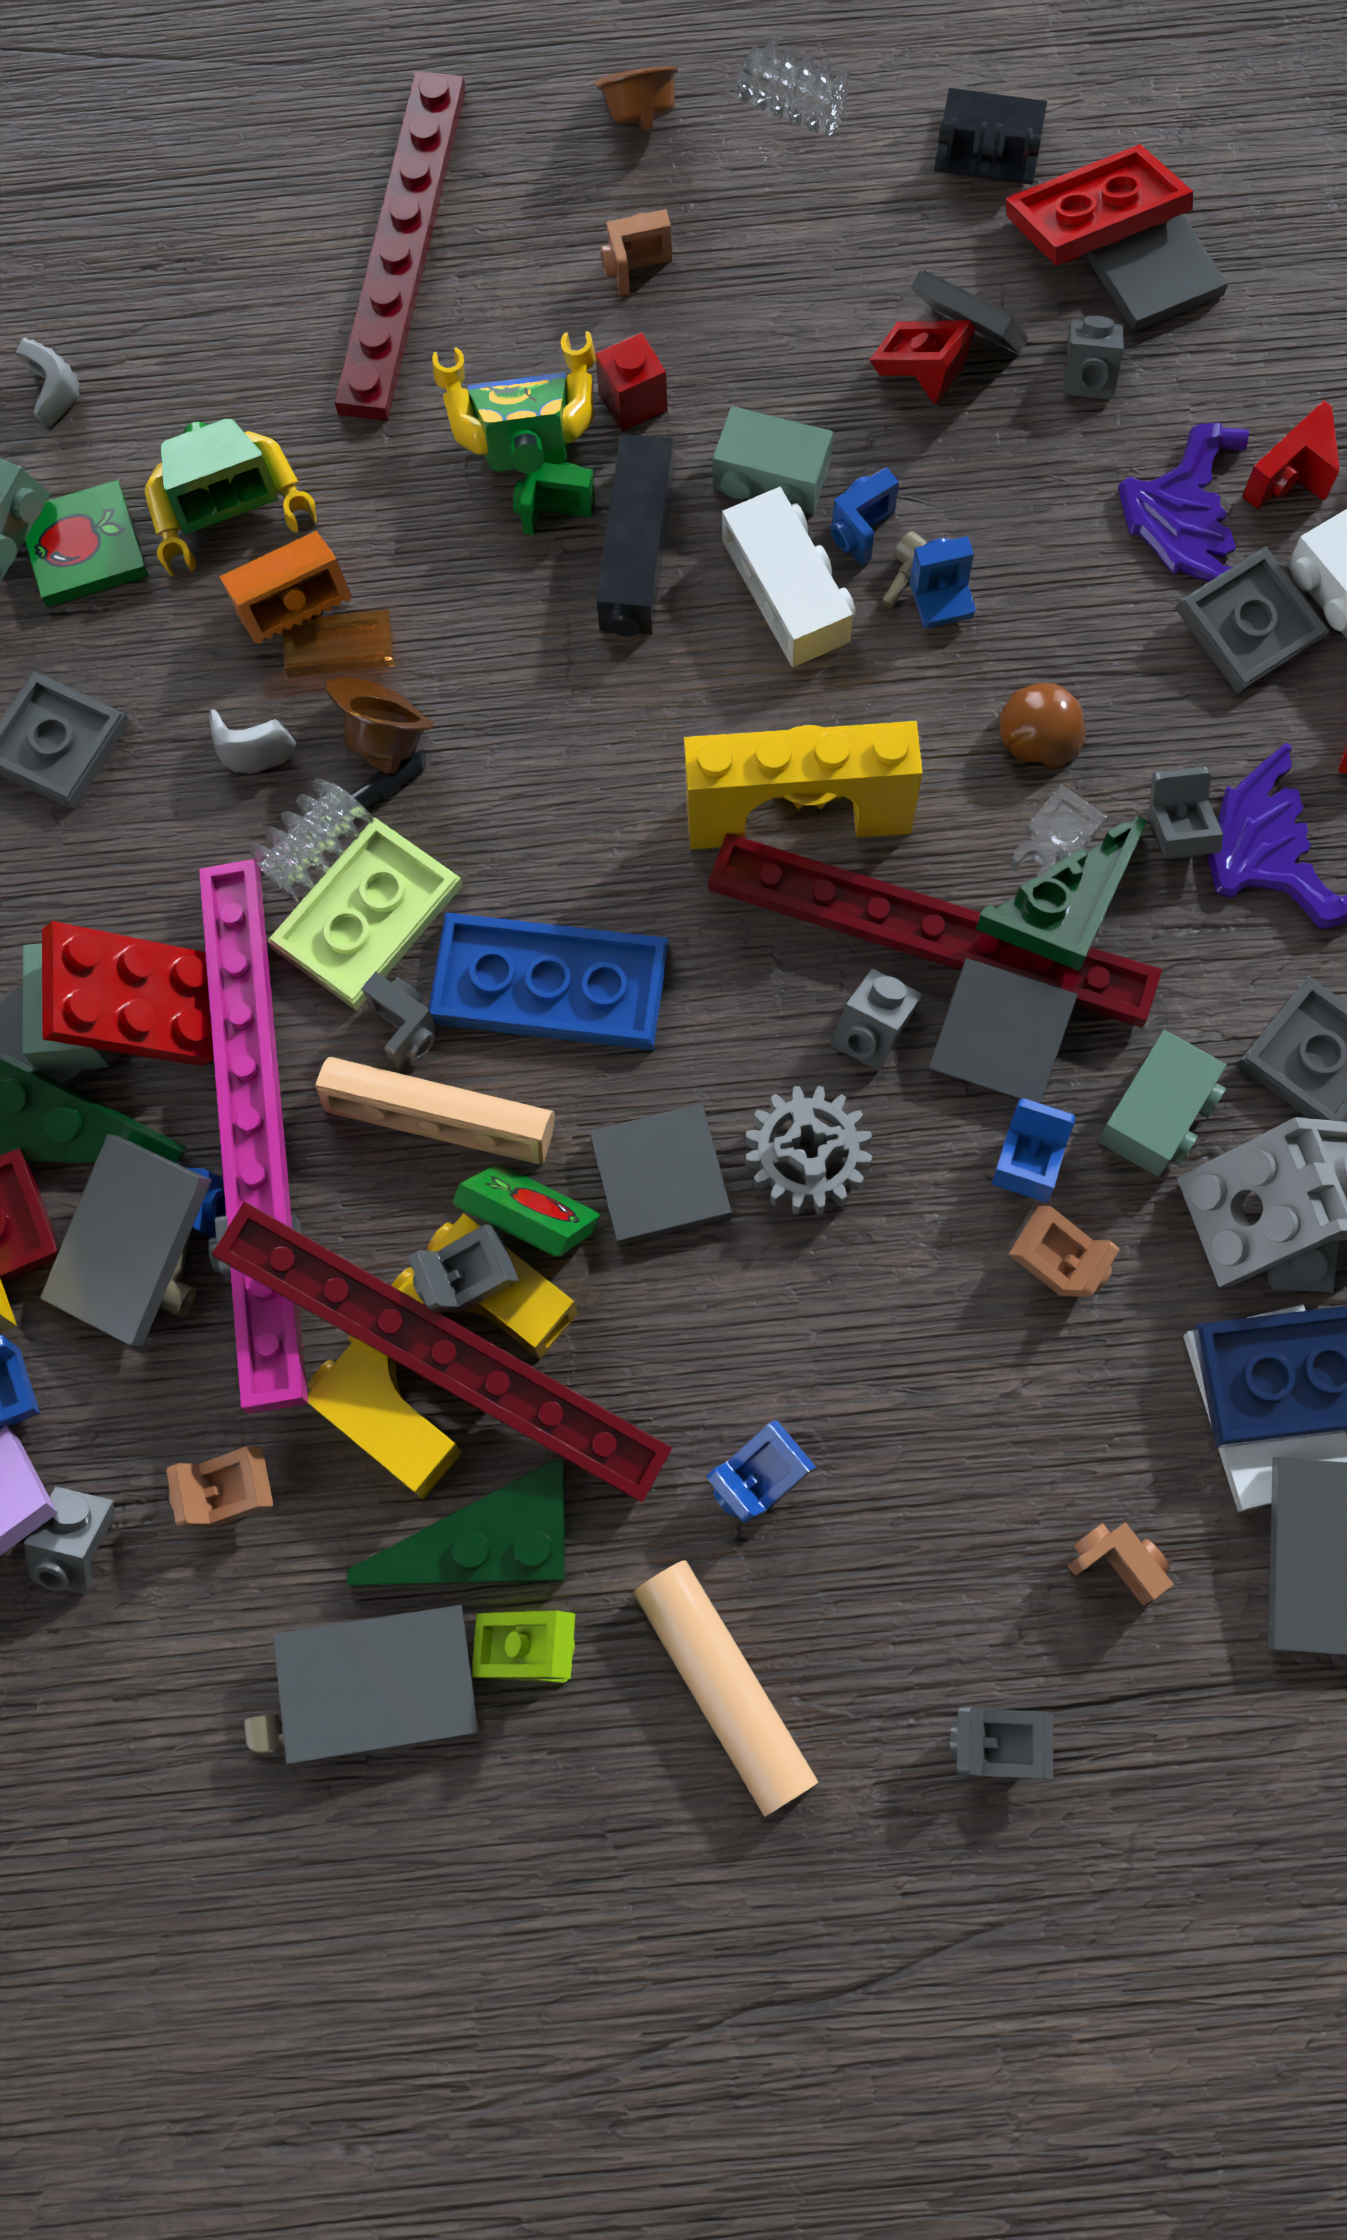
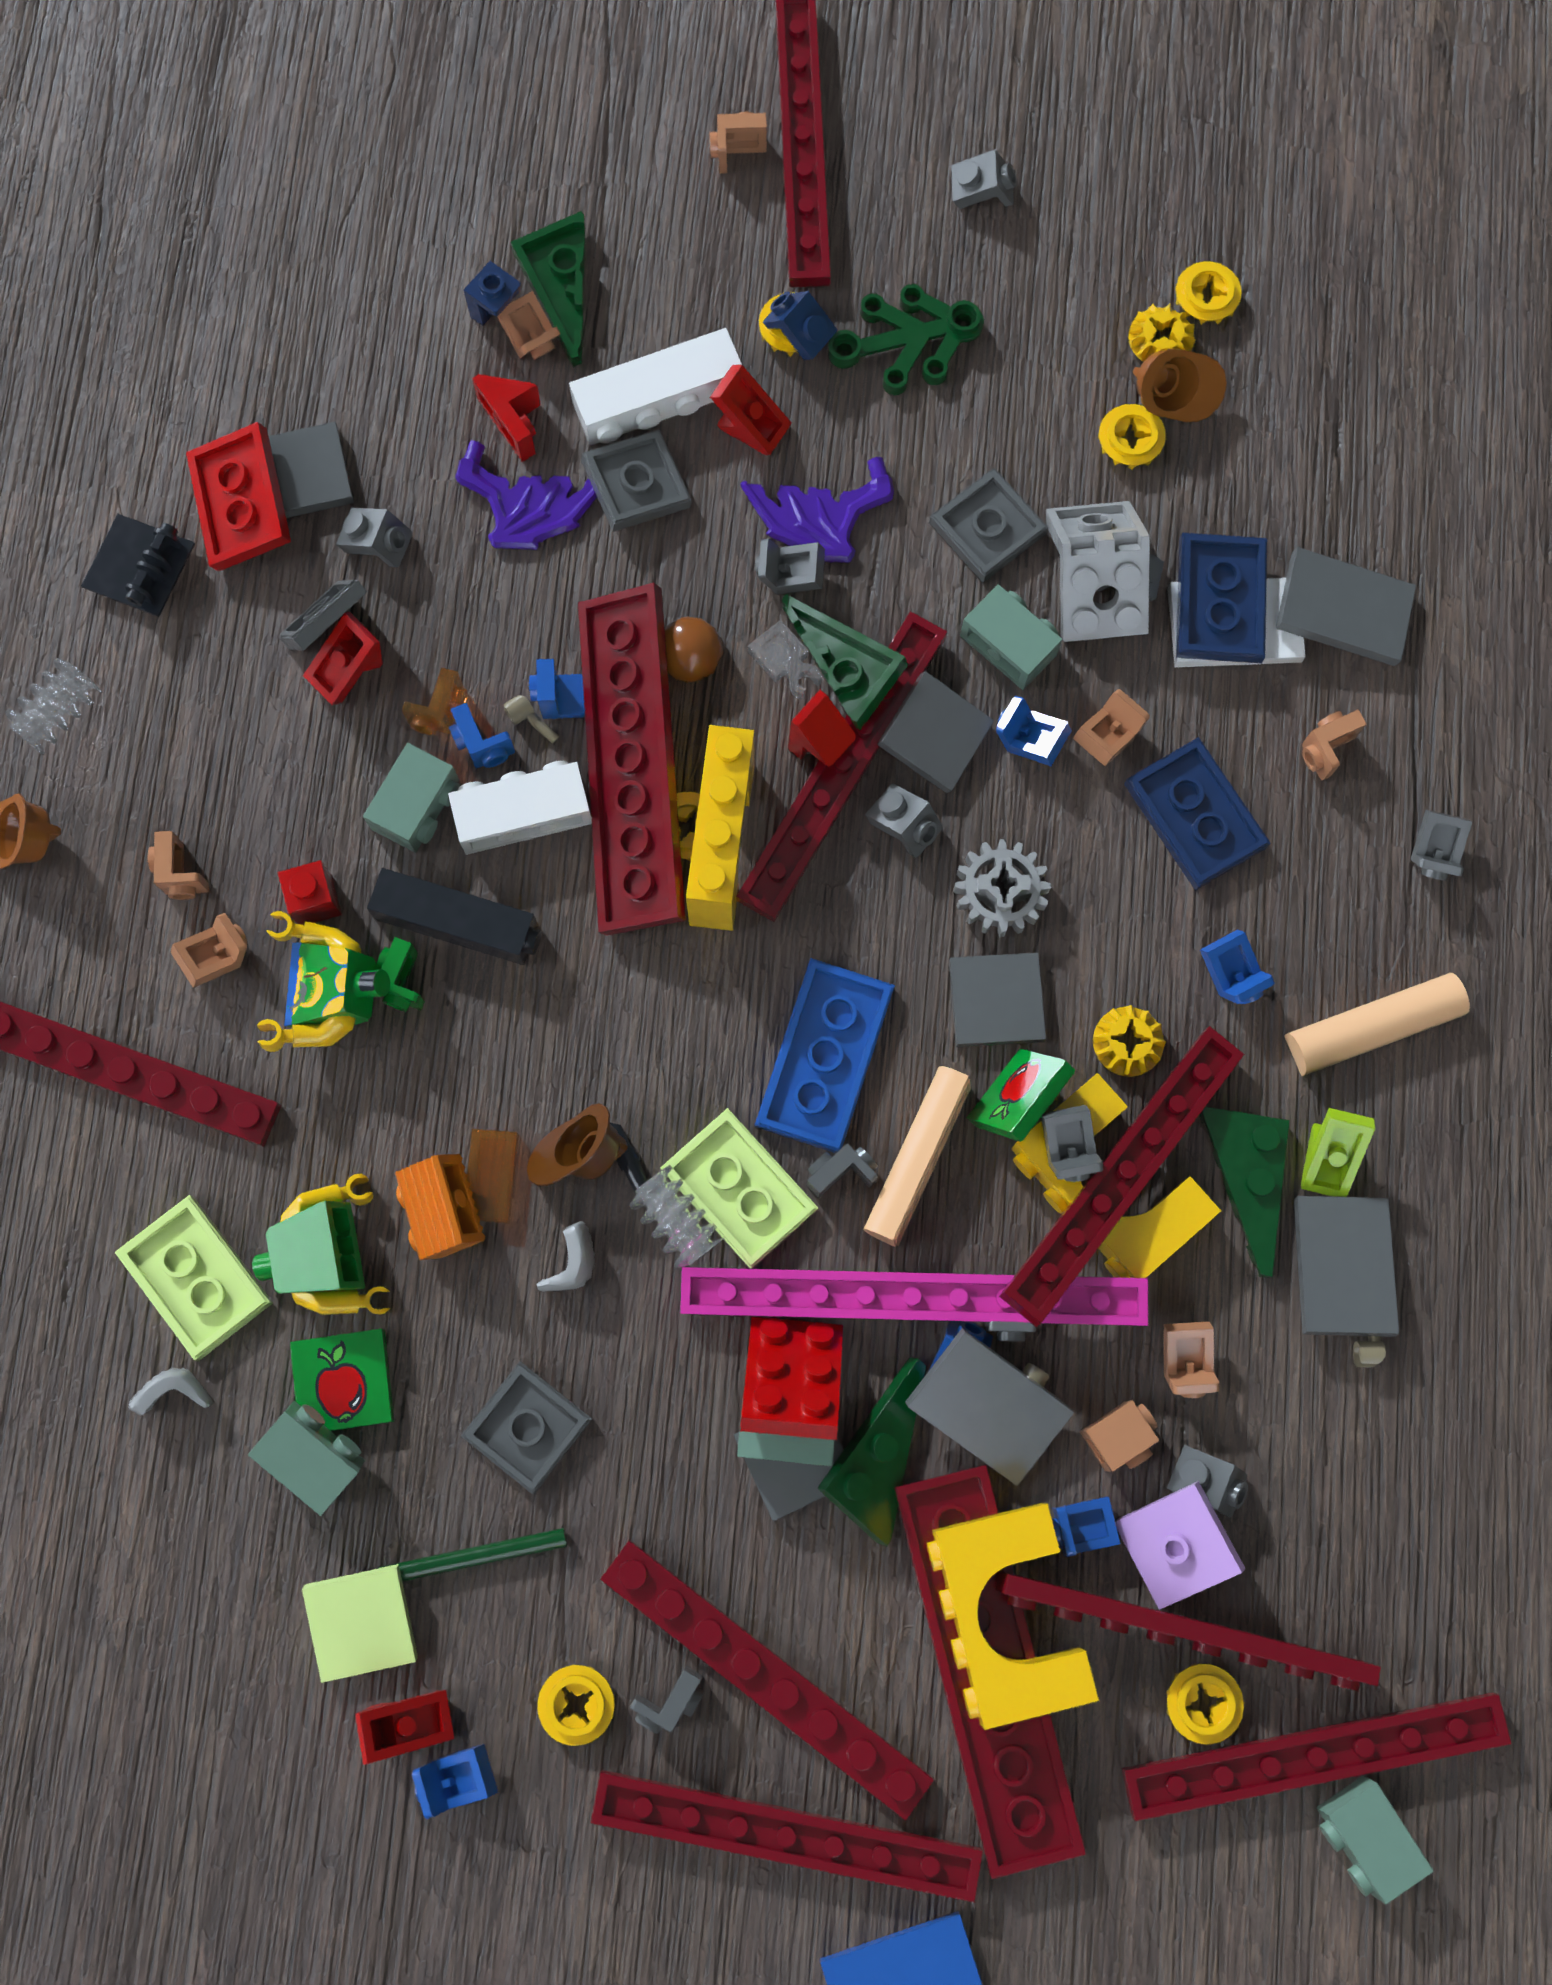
camera: 85 degrees left, 5 degrees up
(111, 1415) = (1122, 1436): none -> nougat brick
(179, 375) = (193, 1278): none -> yellowish green tile
(543, 303) = (211, 951): none -> nougat bracket
(659, 1367) = (1114, 1054): none -> yellow gear
(889, 672) = (631, 761): none -> dark red plate
(910, 464) = (438, 716): none -> clear orange bracket
(960, 876) = (820, 731): none -> red slope
(975, 1395) = (1197, 813): none -> dark blue tile

